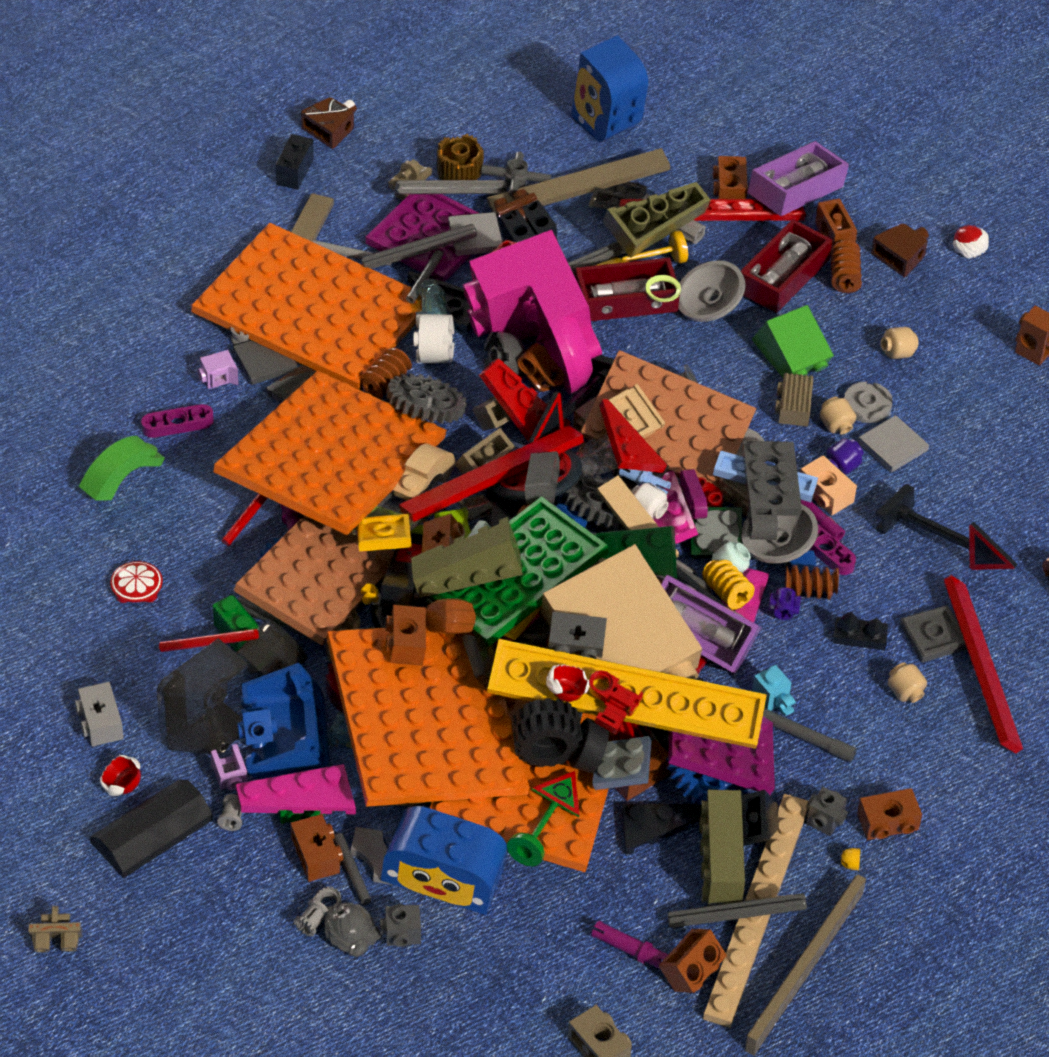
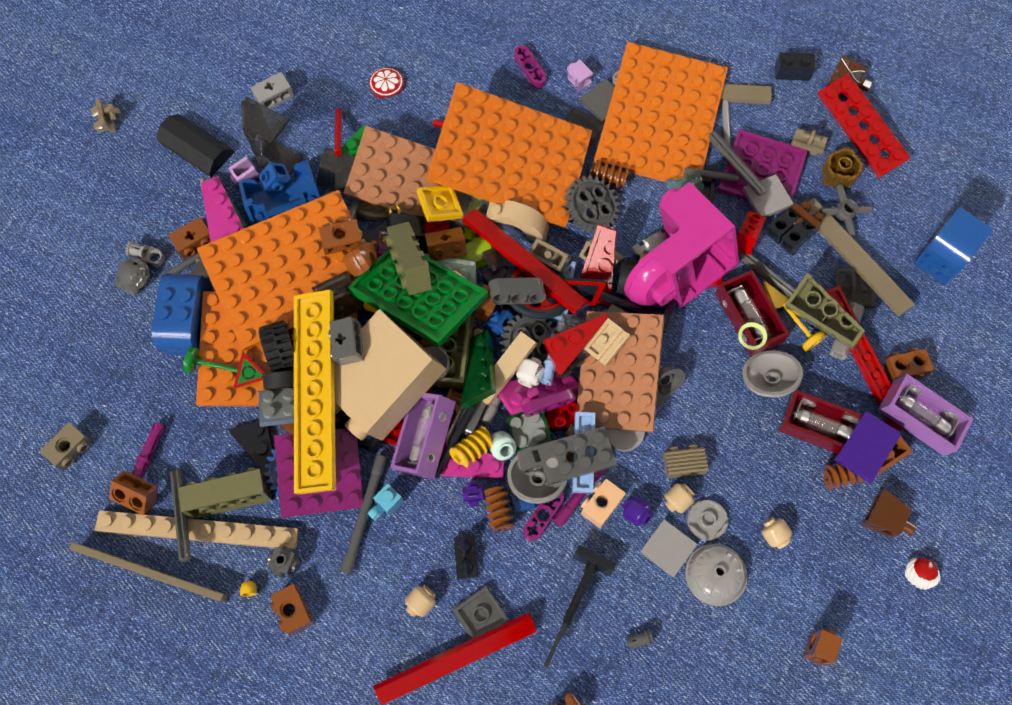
camera: 80 degrees right, 20 degrees up
(115, 464) = (470, 38): bright green arch -> none
(121, 776) = (225, 116): red hair -> none
(399, 134) = (858, 136): none -> red plate
(401, 925) = (136, 303): dark grey brick -> none
(434, 338) = (648, 194): white brick -> none
(451, 186) = (810, 169): dark grey axle -> none
(548, 378) = (626, 268): none -> black tyre
(567, 682) = (298, 343): red hair -> none
(620, 701) = (300, 385): red piece -> none
(758, 817) = (256, 513): black slope -> none
(794, 343) = (740, 450): bright green slope -> none
(826, 229) = (867, 447): none -> dark purple tile
(934, 410) = (707, 584): none -> light grey hat
(993, 487) = (640, 639): none -> dark grey pin

